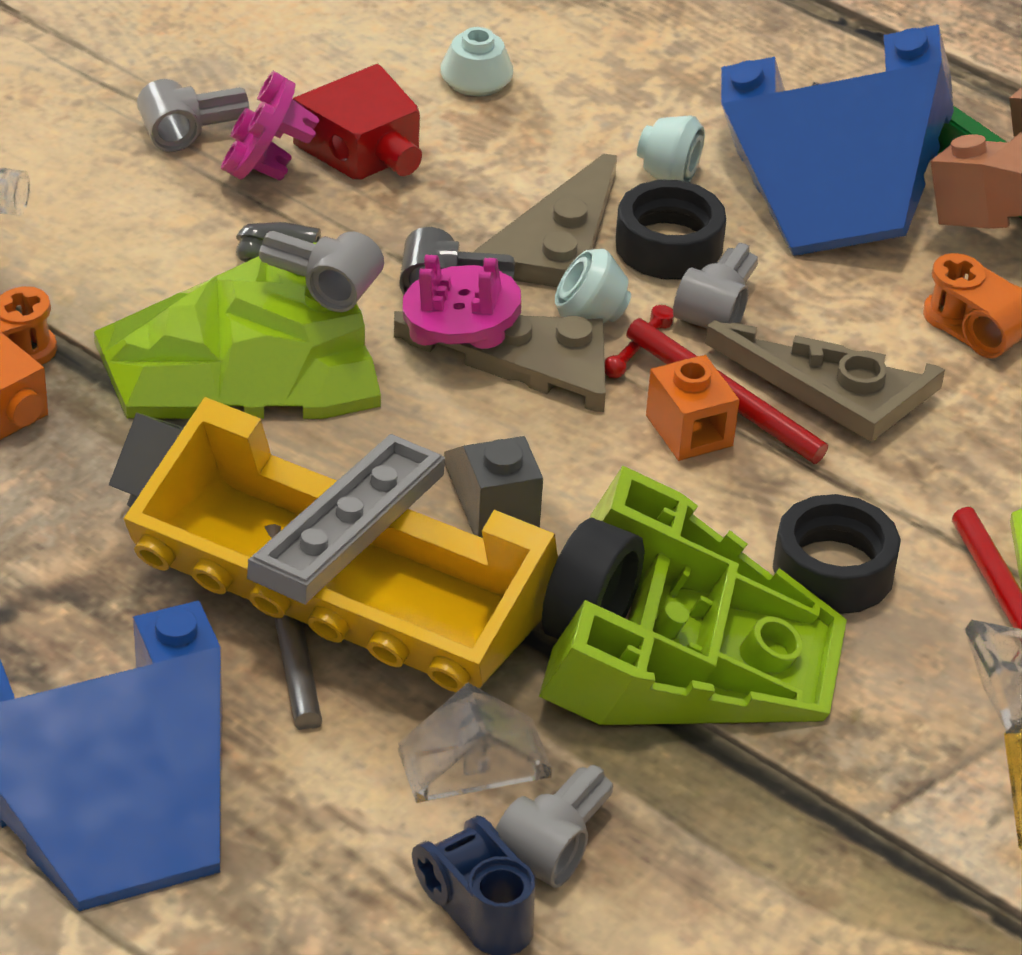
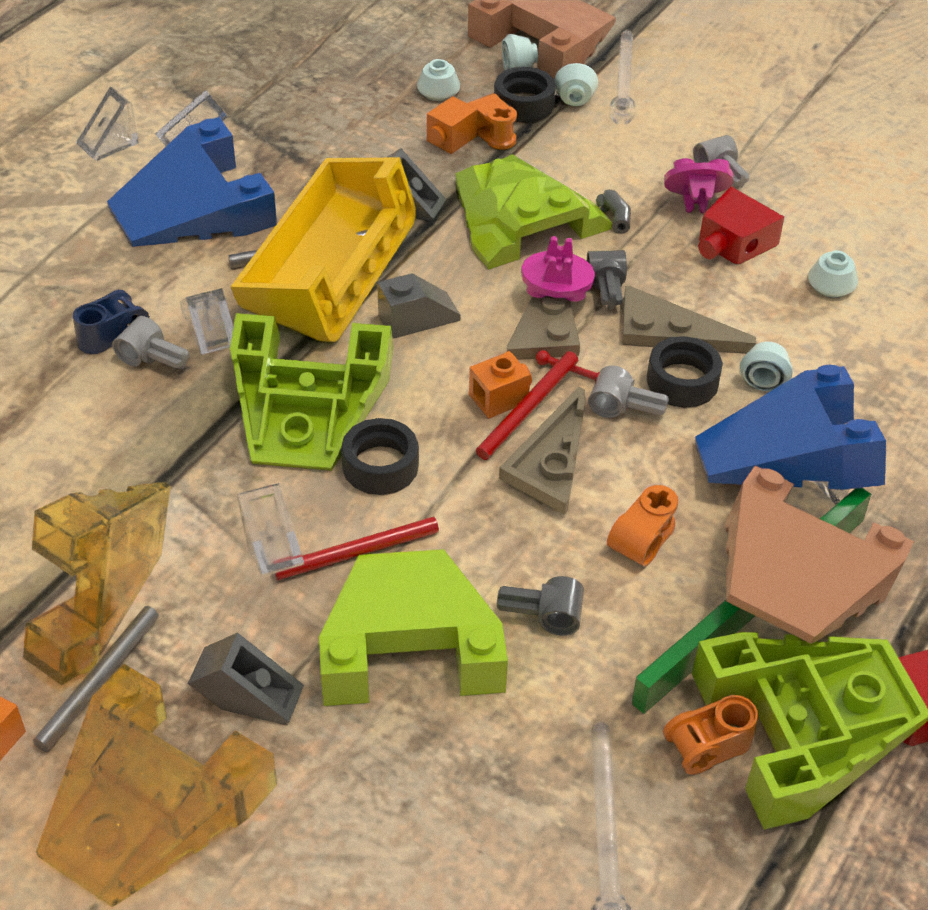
camera: 85 degrees right, 5 degrees up
(334, 269) = (532, 194): light grey axle -> none
(345, 519) = (338, 231): light grey tile -> none
(593, 288) = (600, 334): light aqua cone -> none
(595, 566) = (322, 320): black tyre -> none

